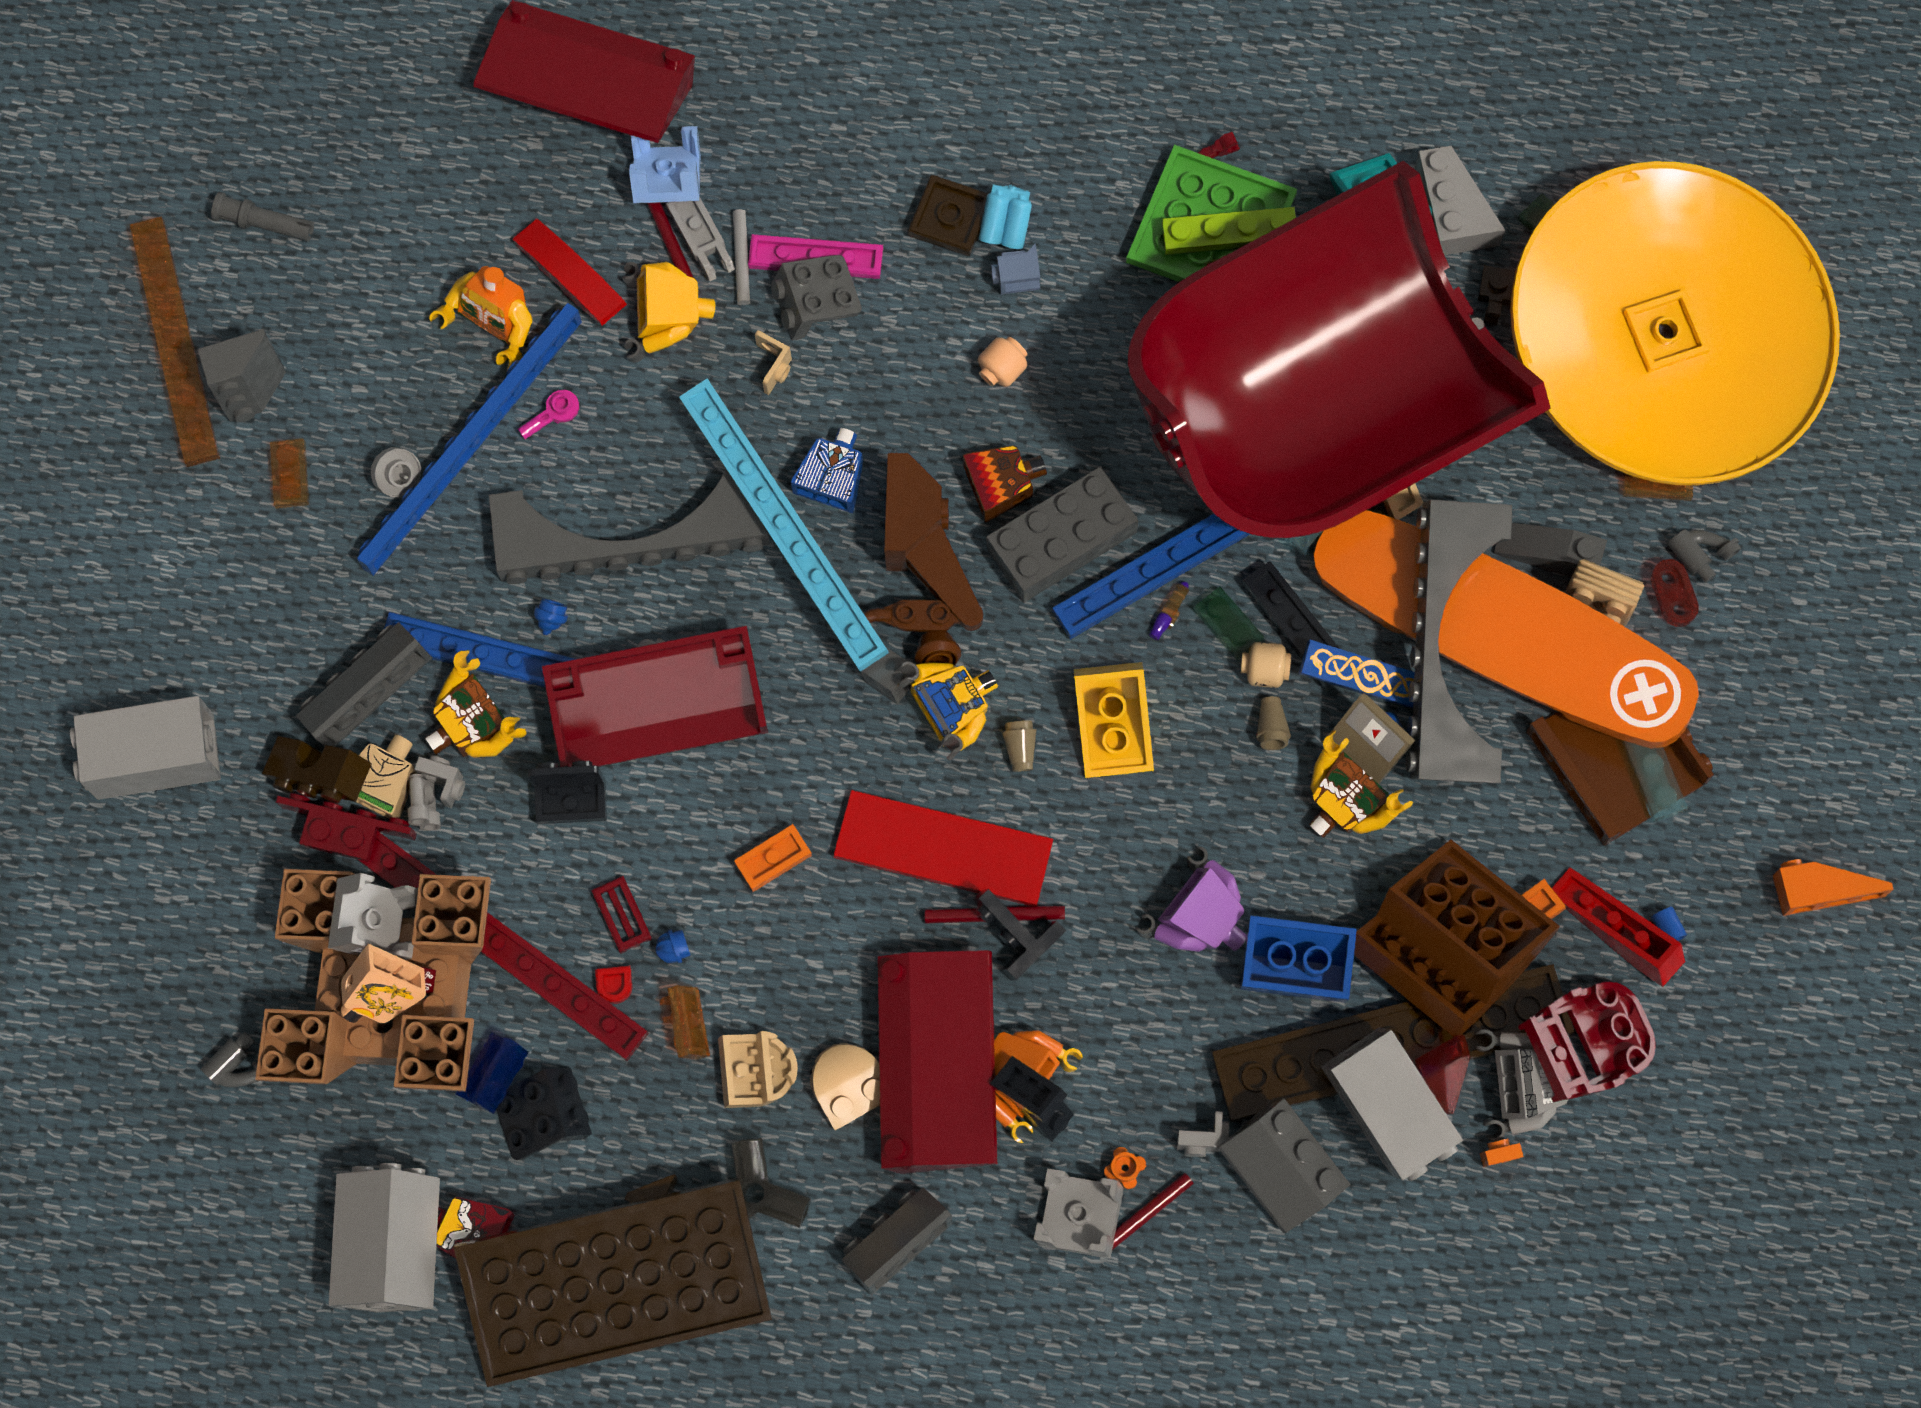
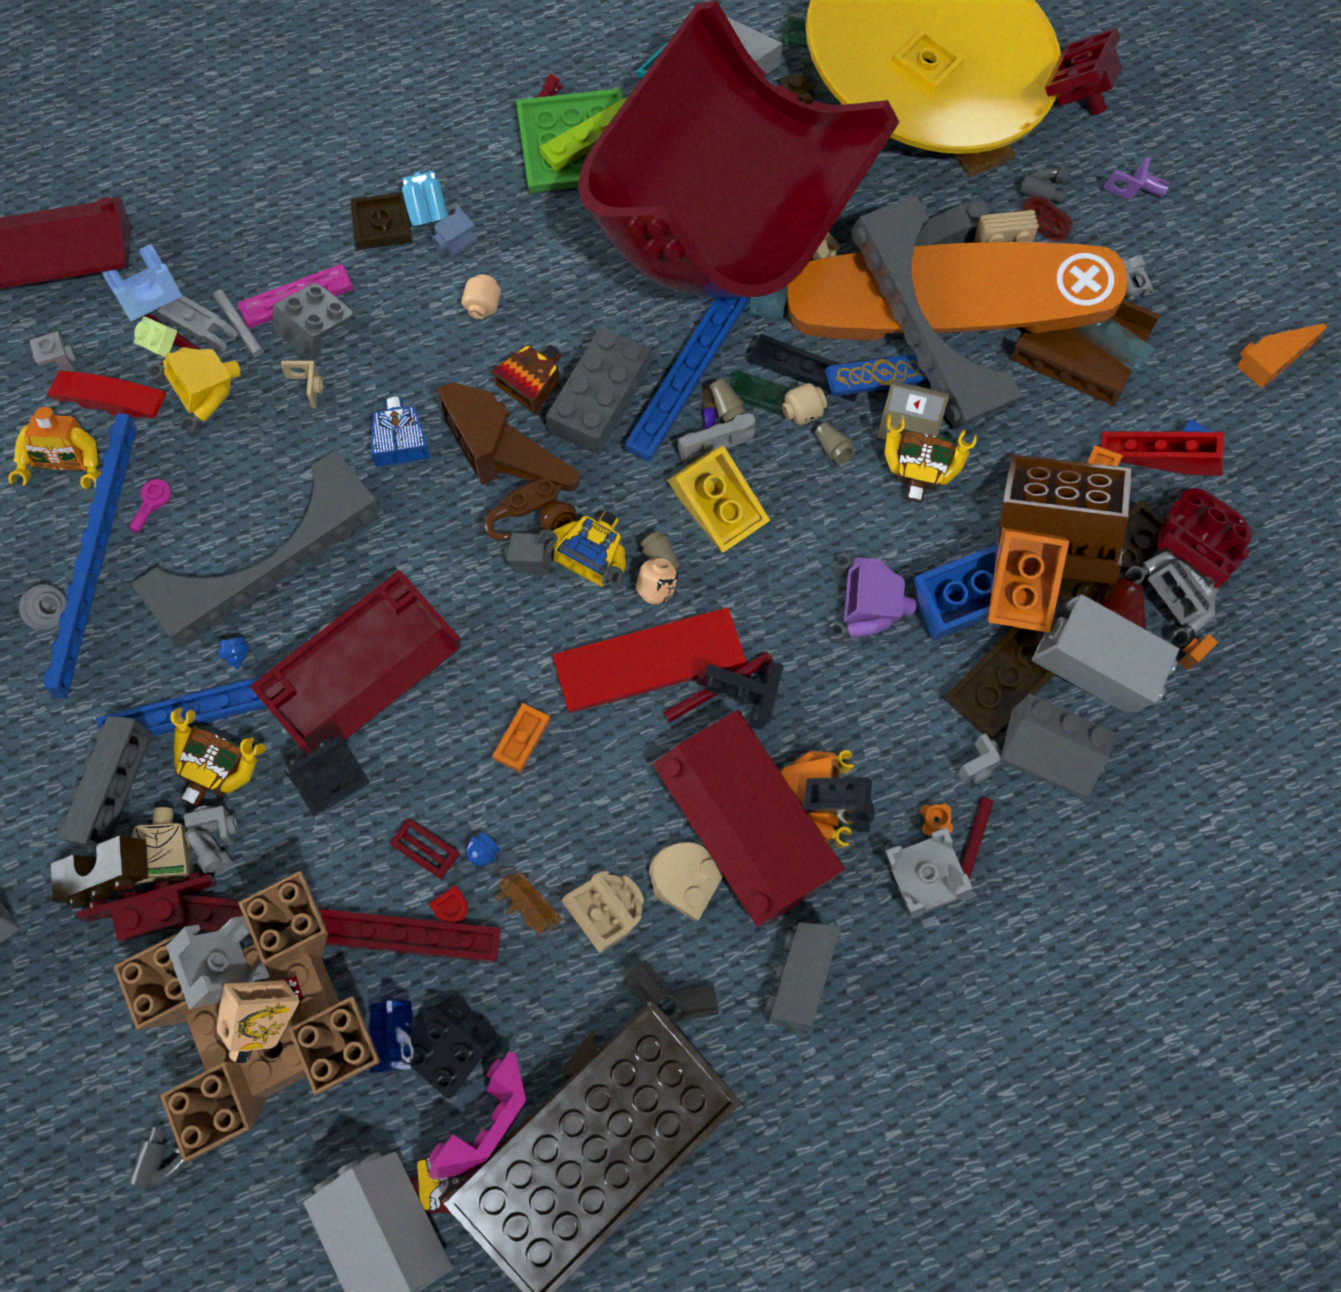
camera: 35 degrees left, 5 degrees down
(488, 1215) = (459, 1157): none -> dark pink slope
(540, 196) = (51, 349): none -> light grey bracket
(648, 234) = (154, 336): none -> yellowish green plate
(784, 525) = (386, 483): medium azure plate -> none
(996, 772) = (657, 581): none -> light nougat head
(1153, 652) = (728, 434): none -> light grey hinge
(1187, 617) = (726, 400): none -> dark tan cone
(1358, 981) = (1027, 579): none -> orange slope
(1727, 700) = (1135, 268): none -> light grey piece
(1814, 606) = (1141, 180): none -> medium lavender bracket
(1830, 442) = (1086, 71): none -> dark red brick

